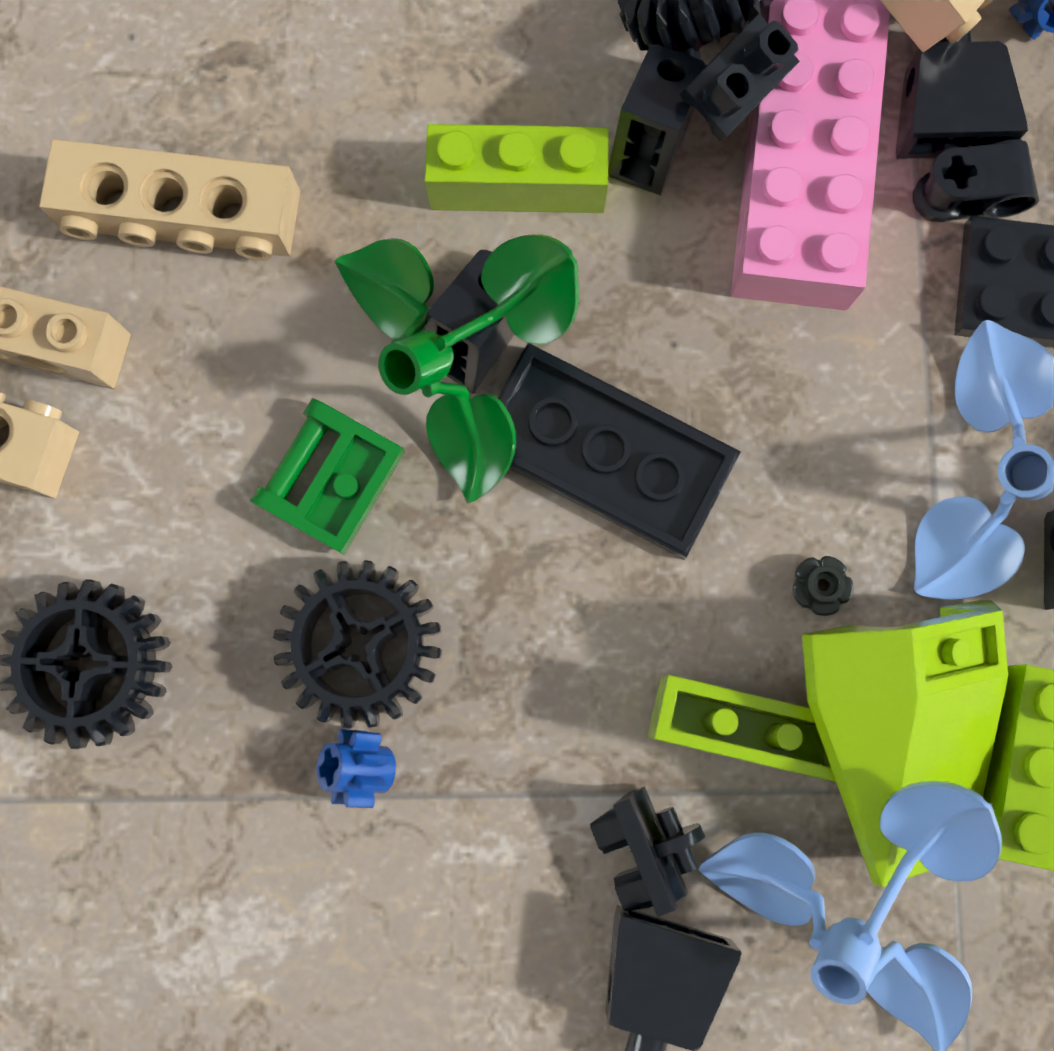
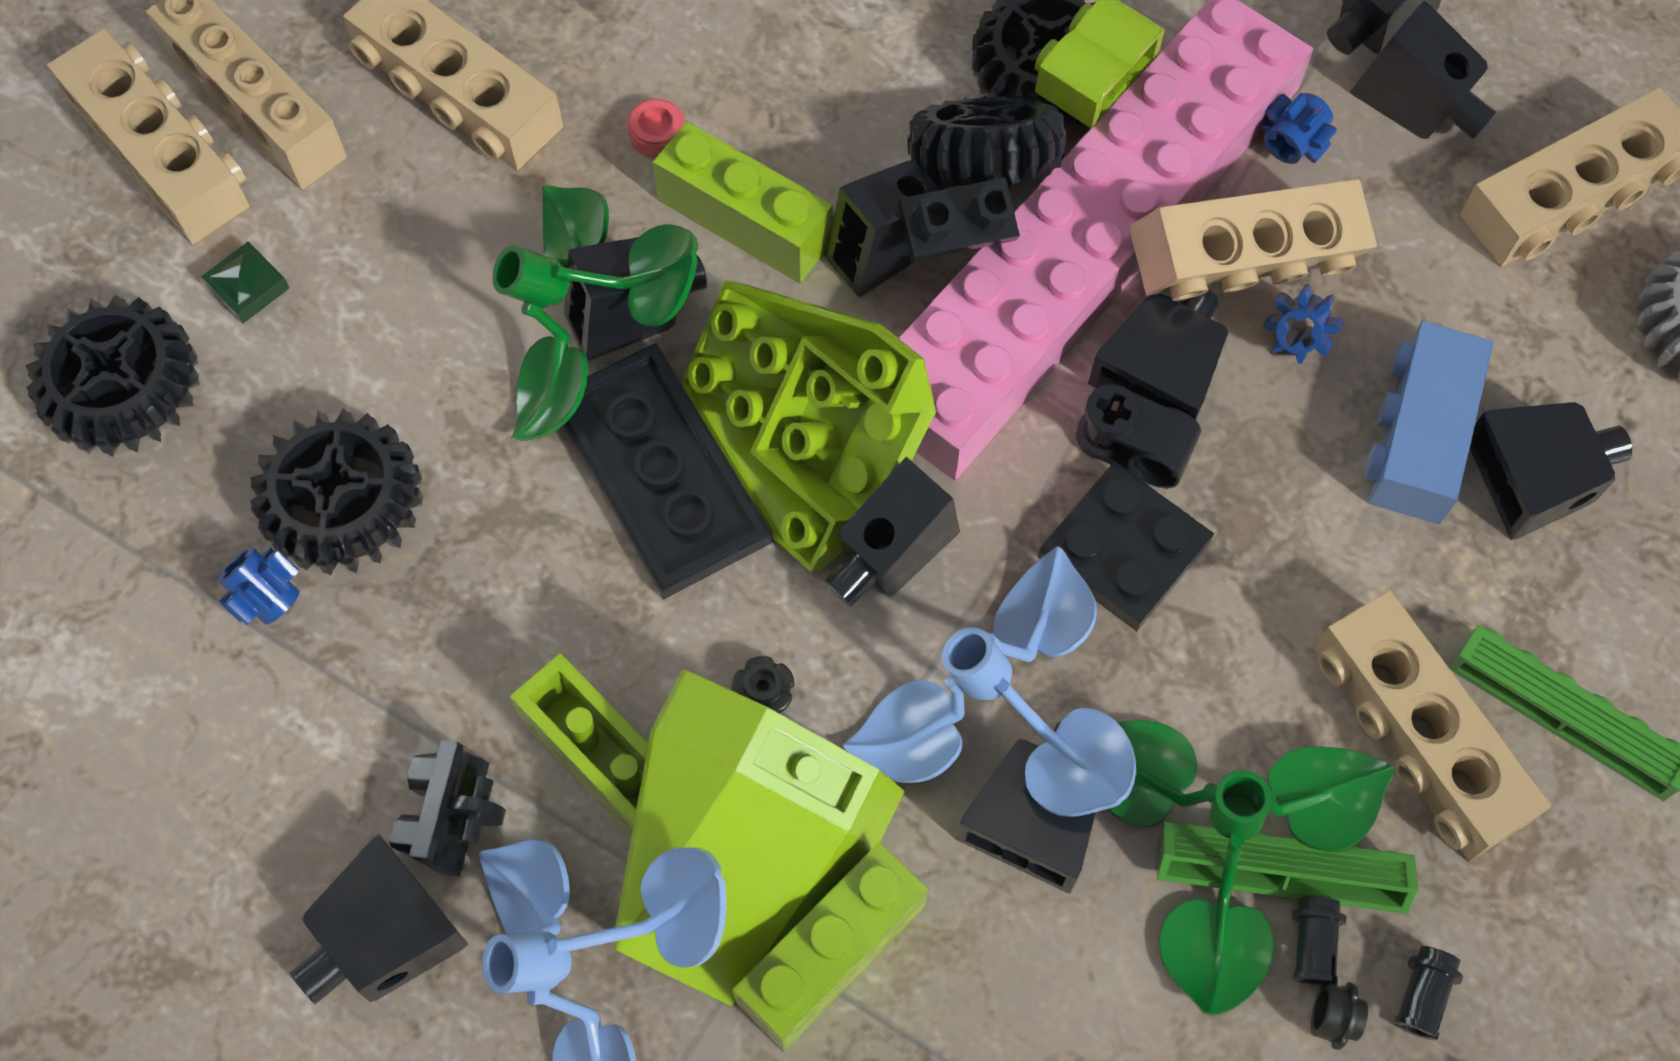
camera: 30 degrees right, 15 degrees down
(132, 505) = (245, 282): none -> dark green tile
(344, 484) = (422, 363): green plate -> none
(385, 143) = (653, 125): none -> coral tile
(713, 328) = (806, 410): none -> lime wedge
(866, 372) = (907, 515): none -> black torso

